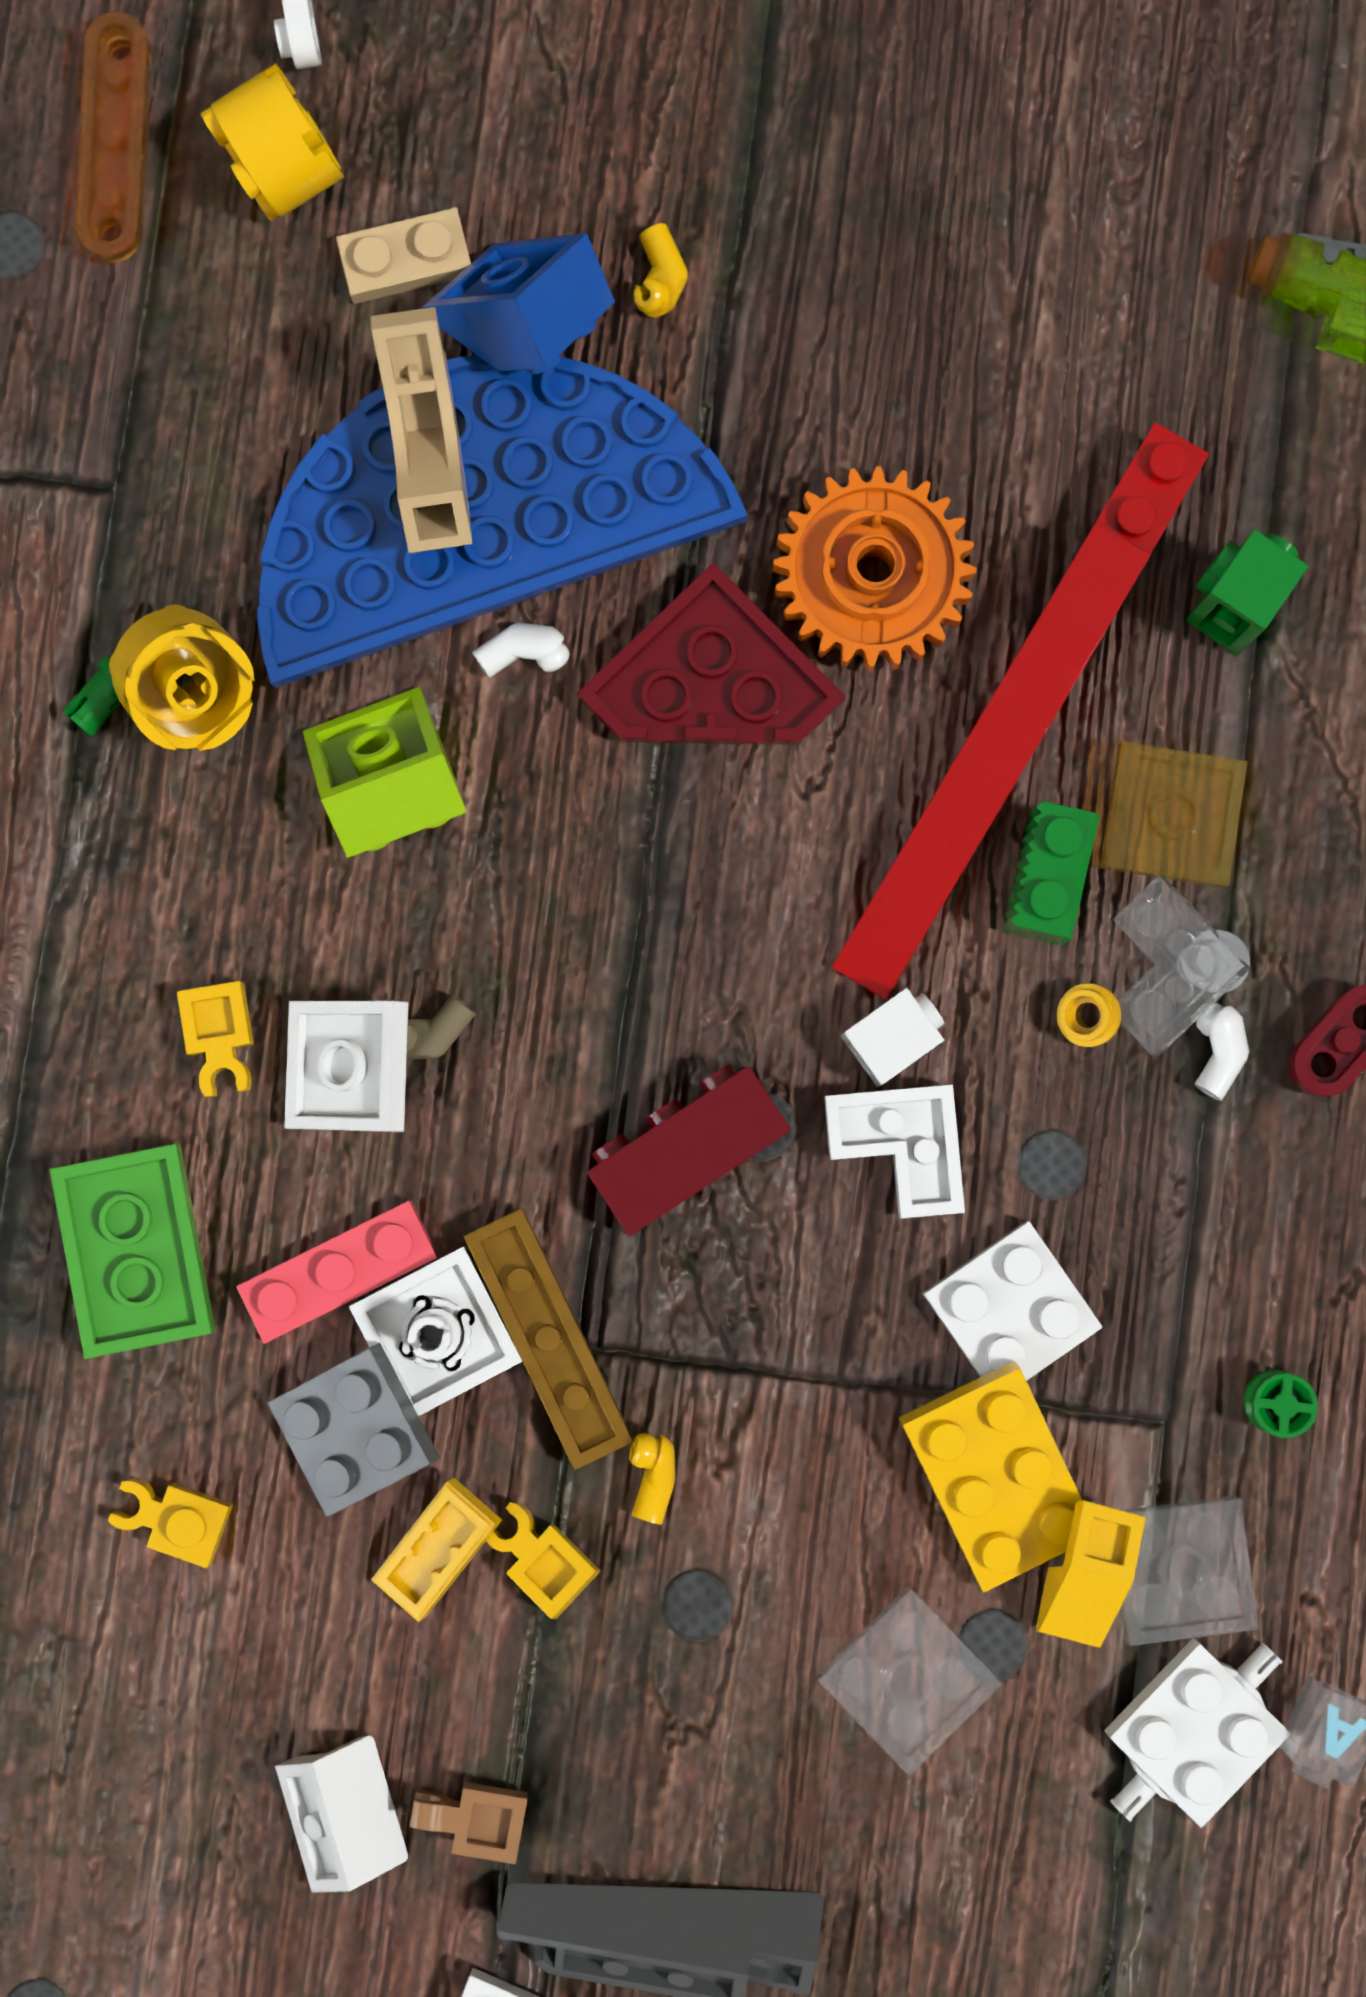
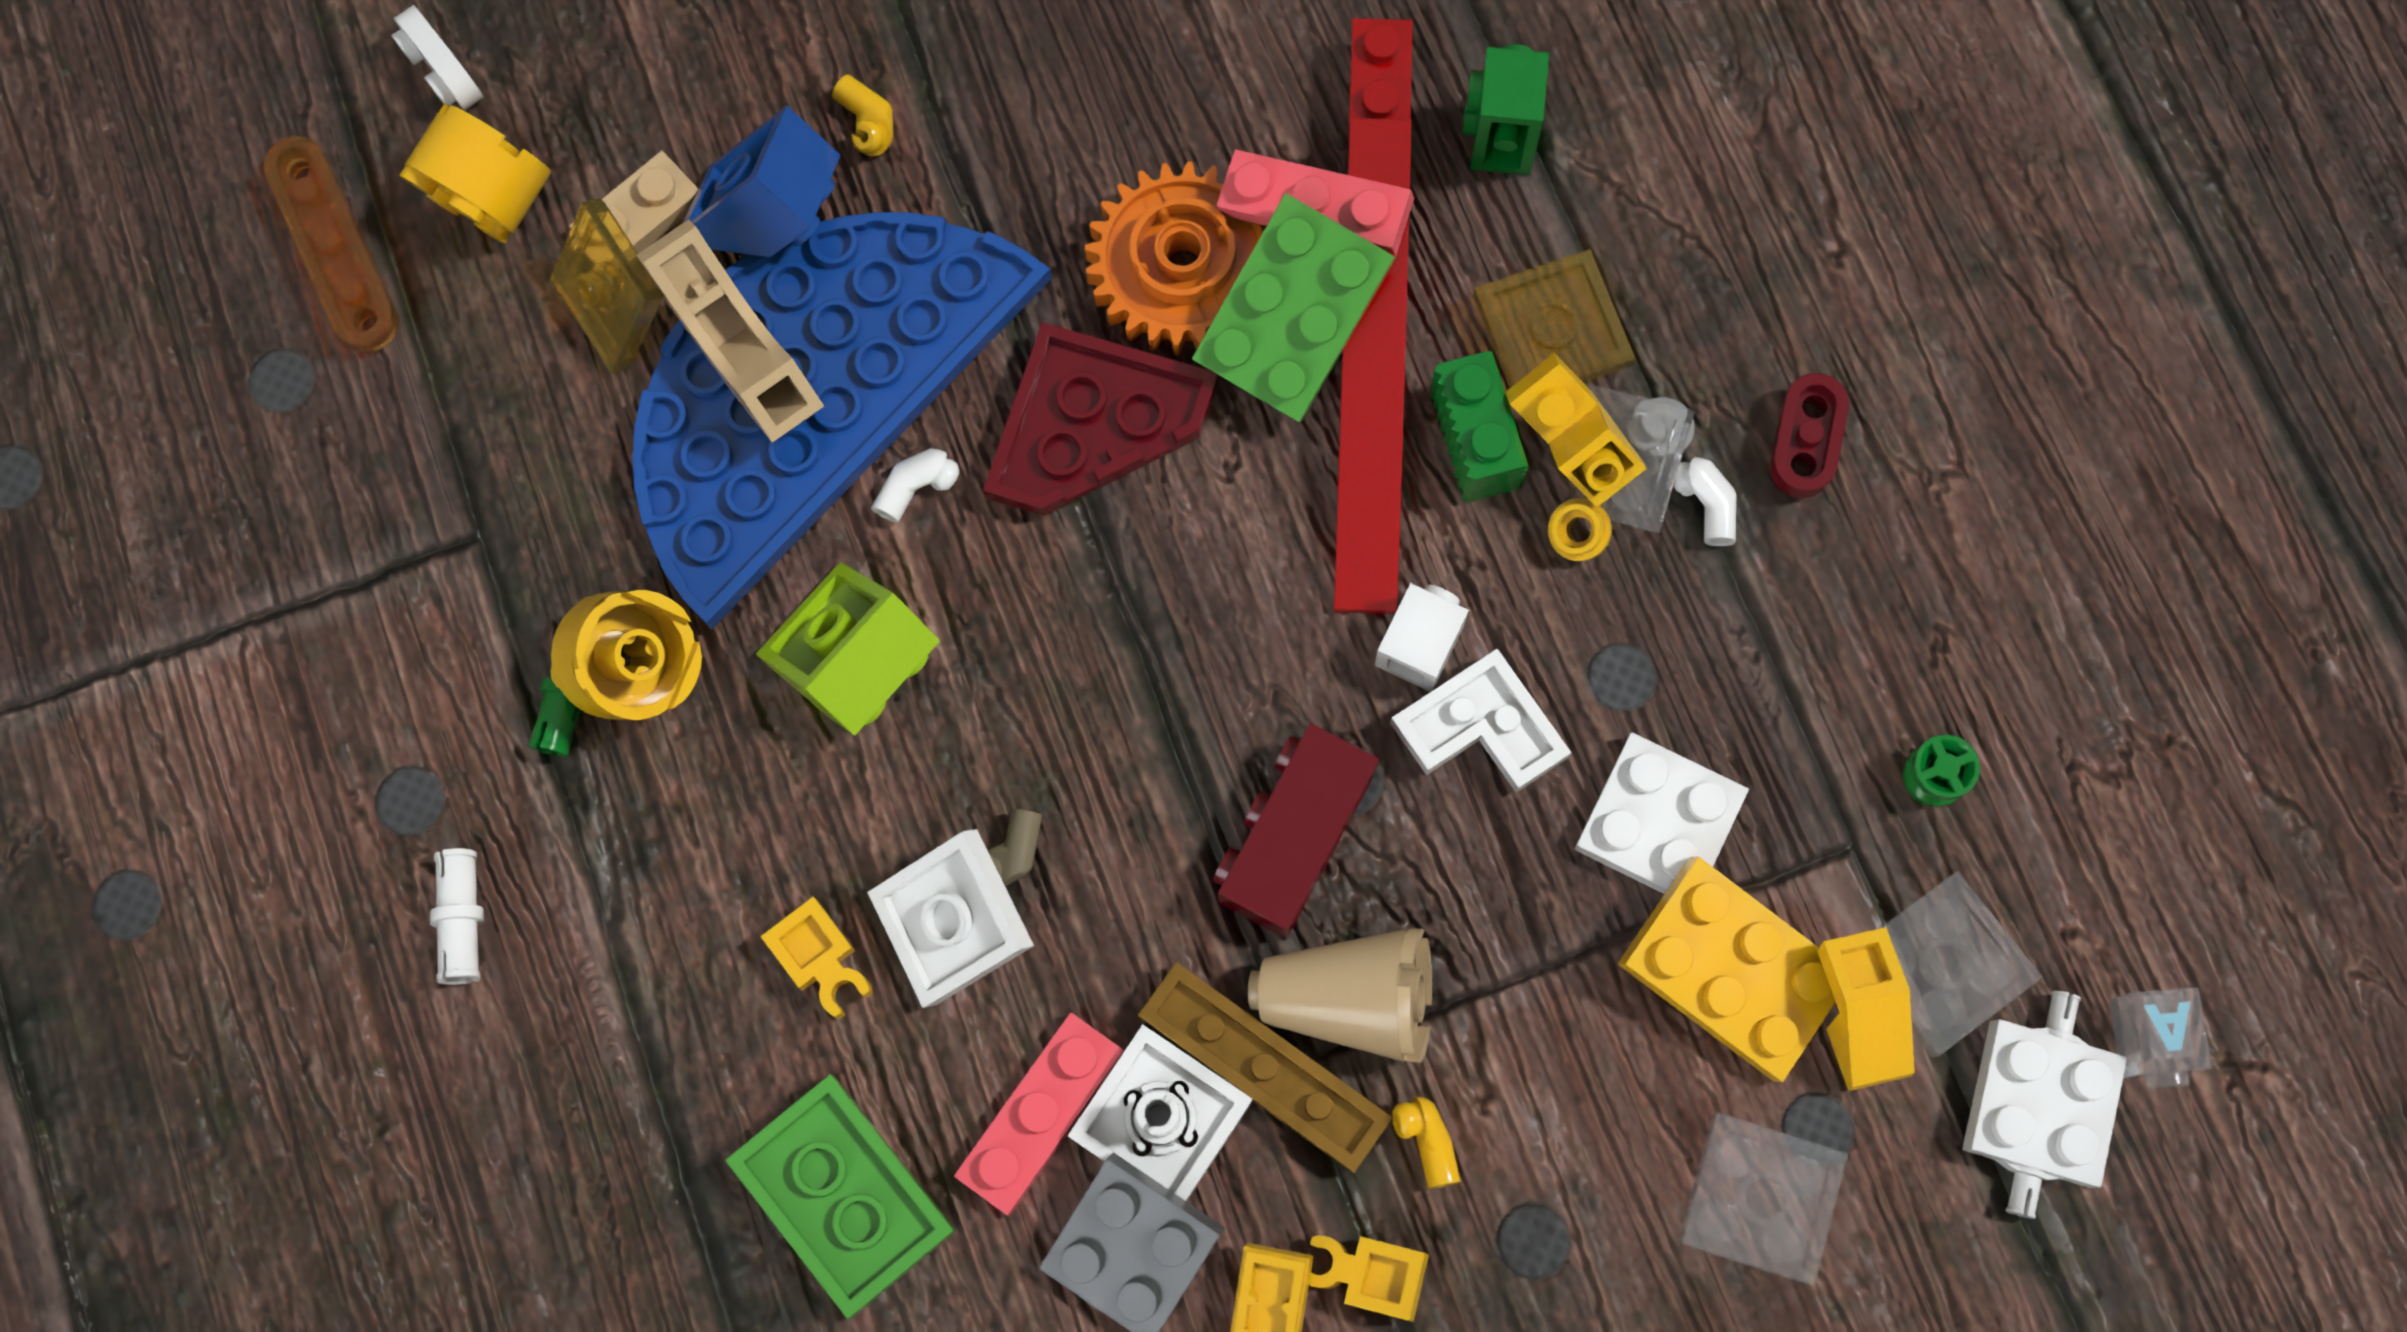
camera: 25 degrees left, 10 degrees down
(335, 317) = (606, 285): none -> clear yellow plate
(655, 1319) = (1352, 993): none -> tan cone
(943, 677) = (1293, 307): none -> bright green plate
(1018, 588) = (1361, 205): none -> coral plate
(1137, 930) = (1577, 428): none -> yellow slope

